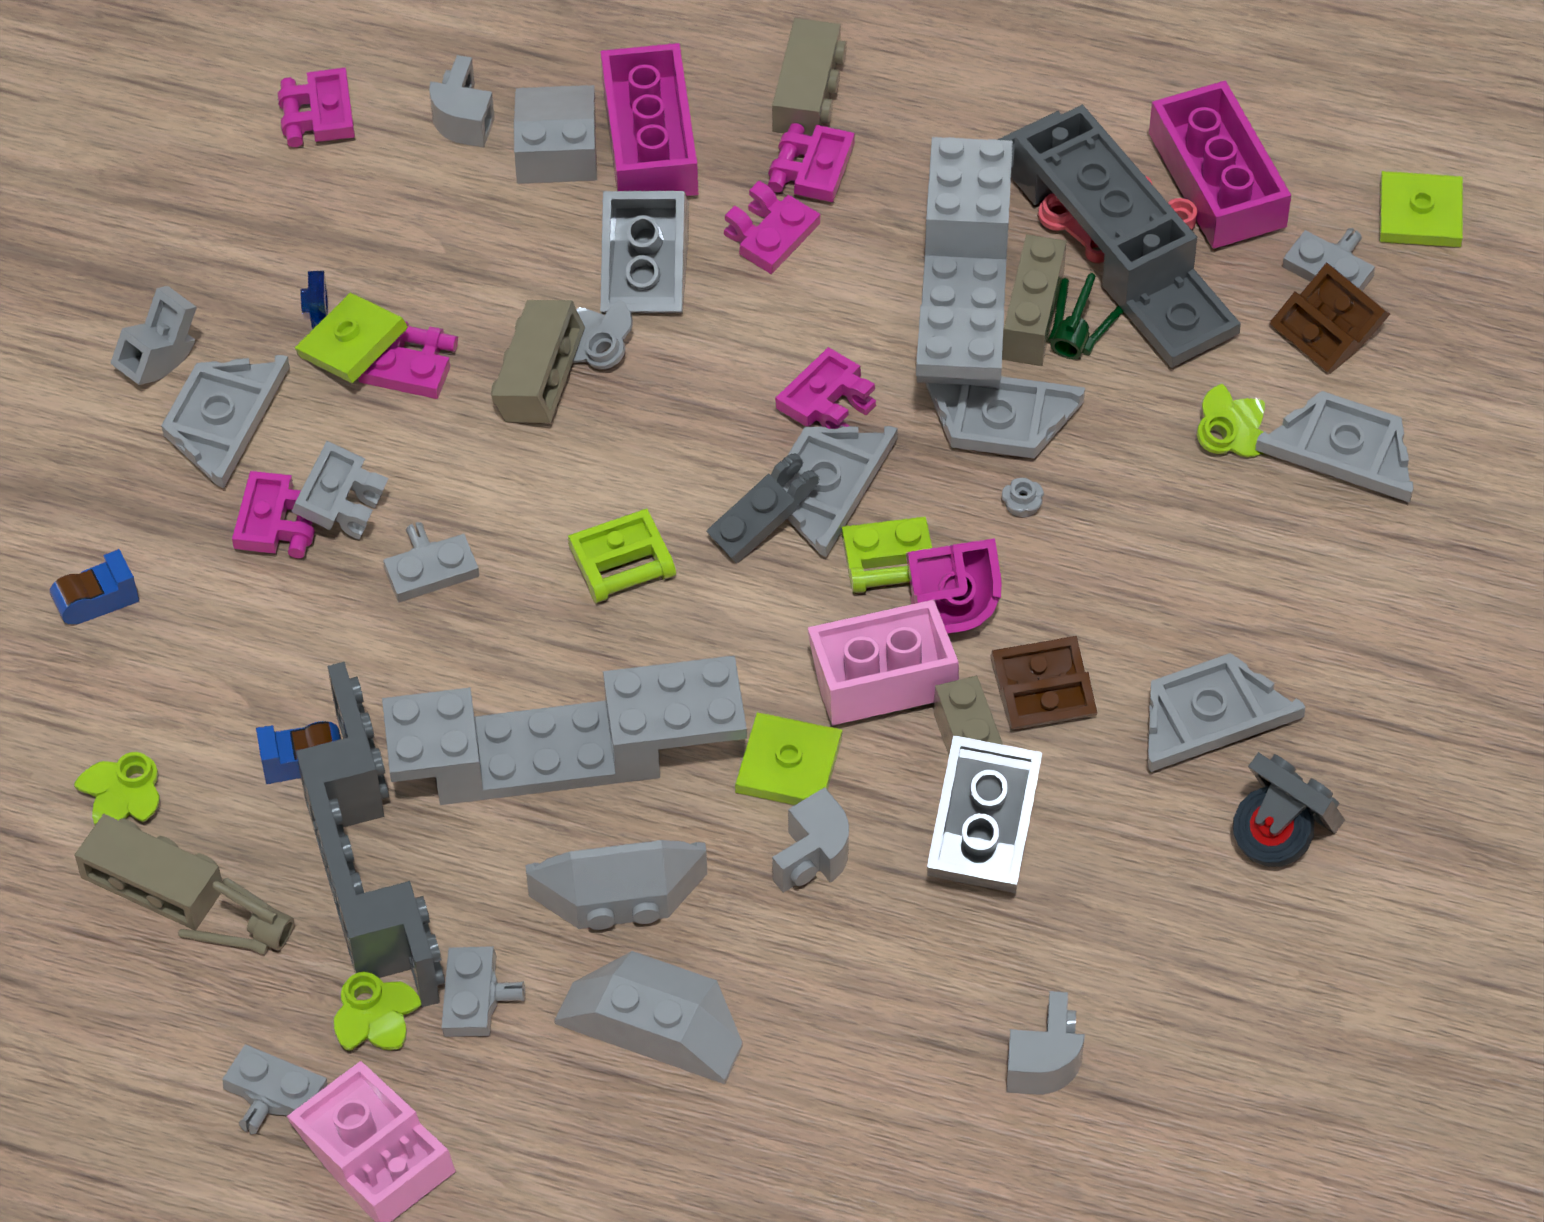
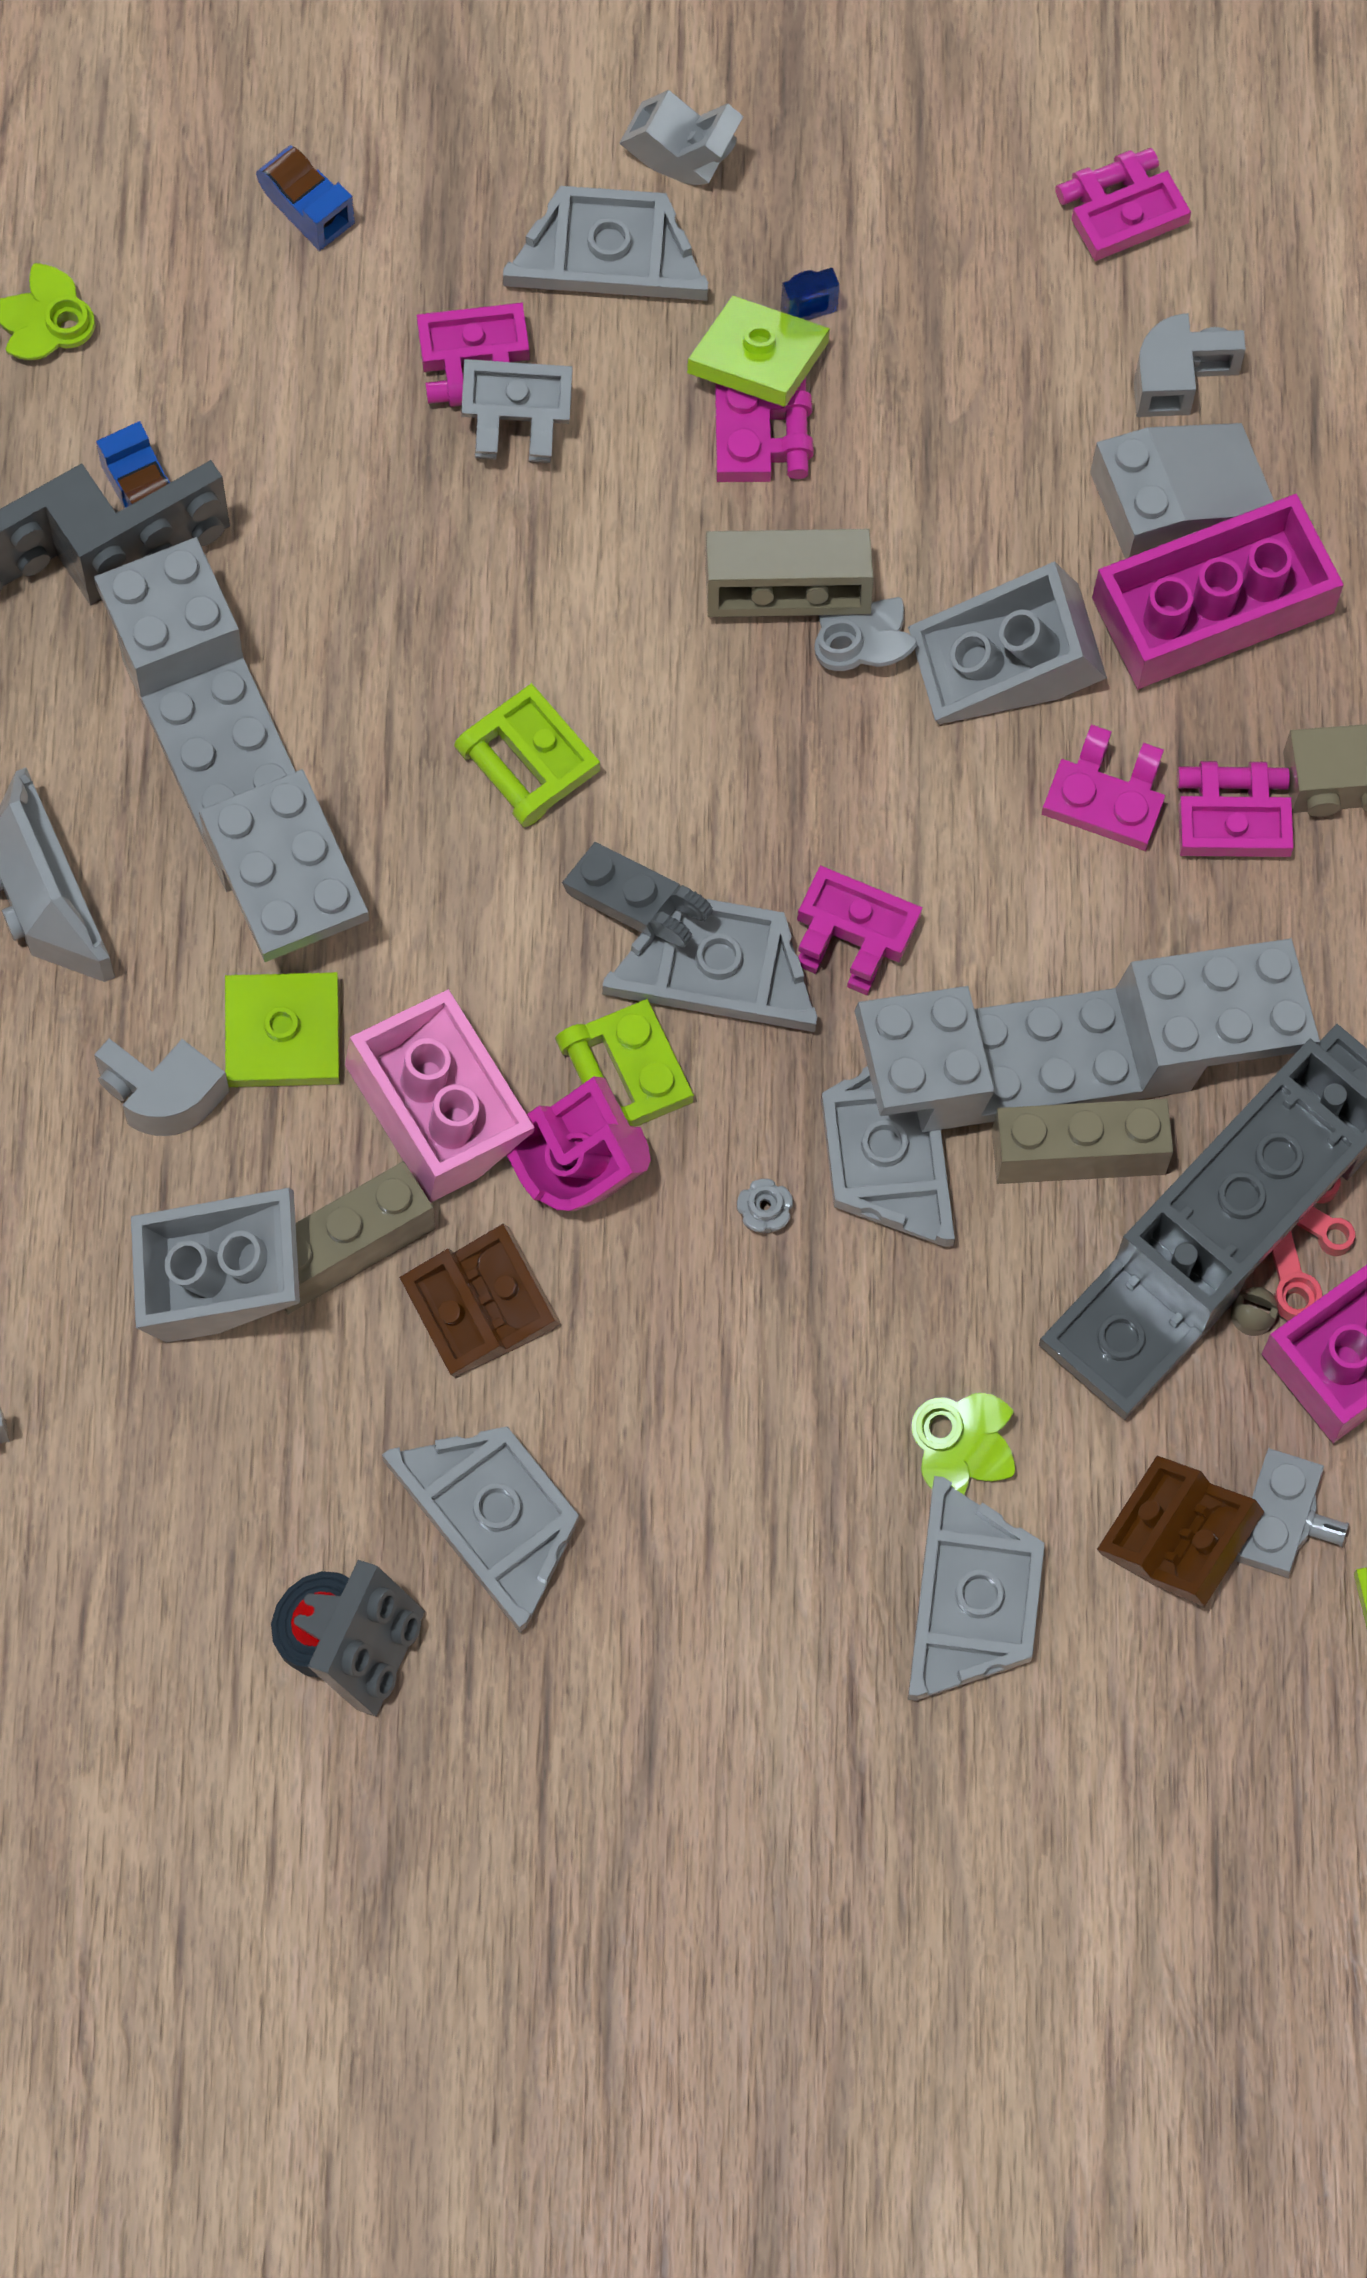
camera: 70 degrees right, 15 degrees up
(429, 565) = (455, 544): light grey plate -> none
(1071, 336) = (1046, 1200): dark green plant -> none

